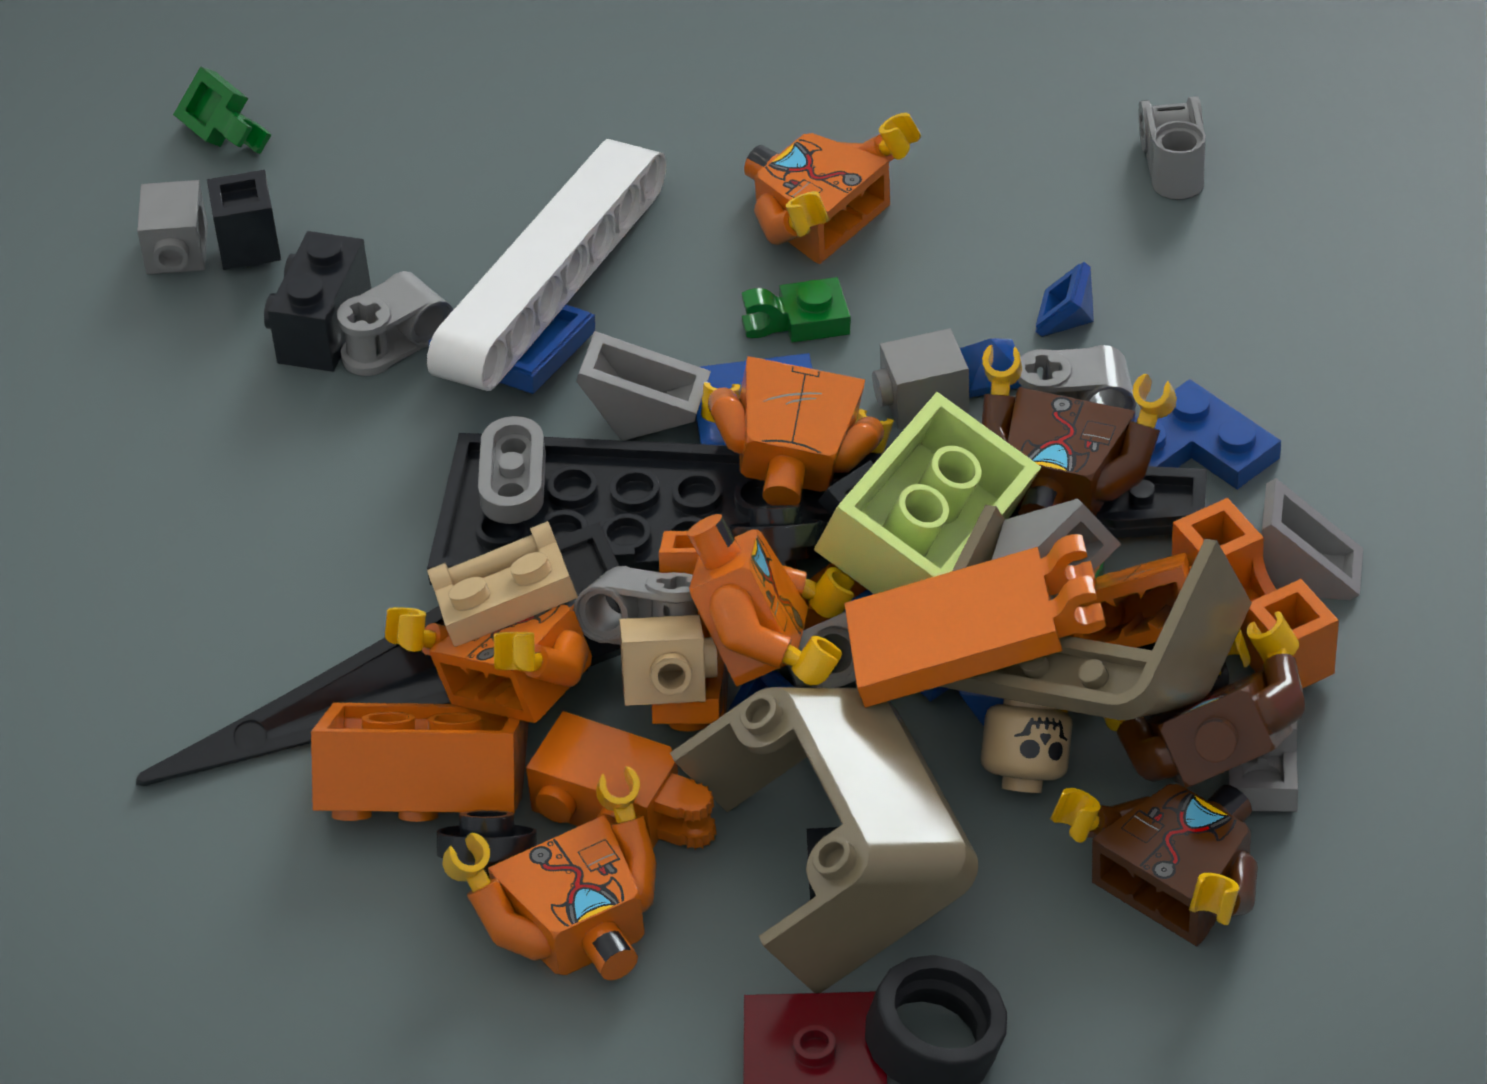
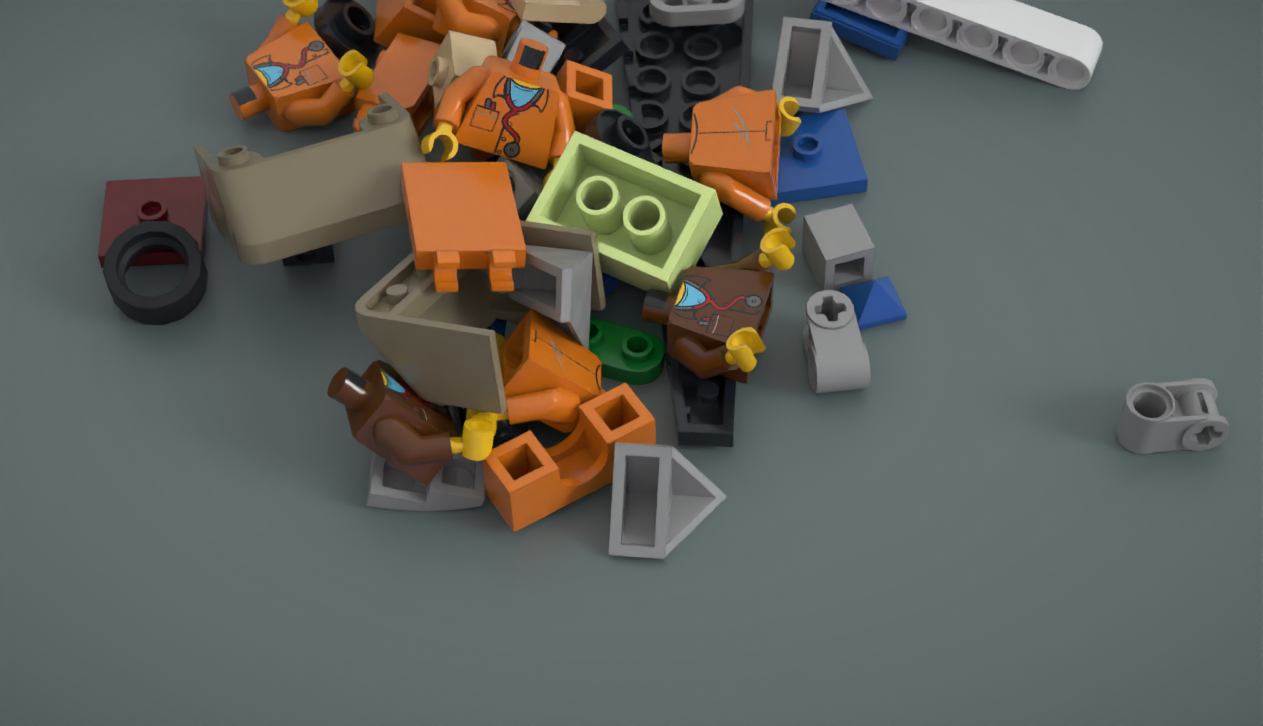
camera: 85 degrees right, 5 degrees up
(803, 309) = (924, 180): green plate -> none
(824, 188) = (1056, 169): orange torso -> none
(1067, 302) = (948, 348): blue slope -> none
(1170, 854) = (291, 417): reddish brown torso -> none
(1214, 437) = (801, 440): blue plate -> none

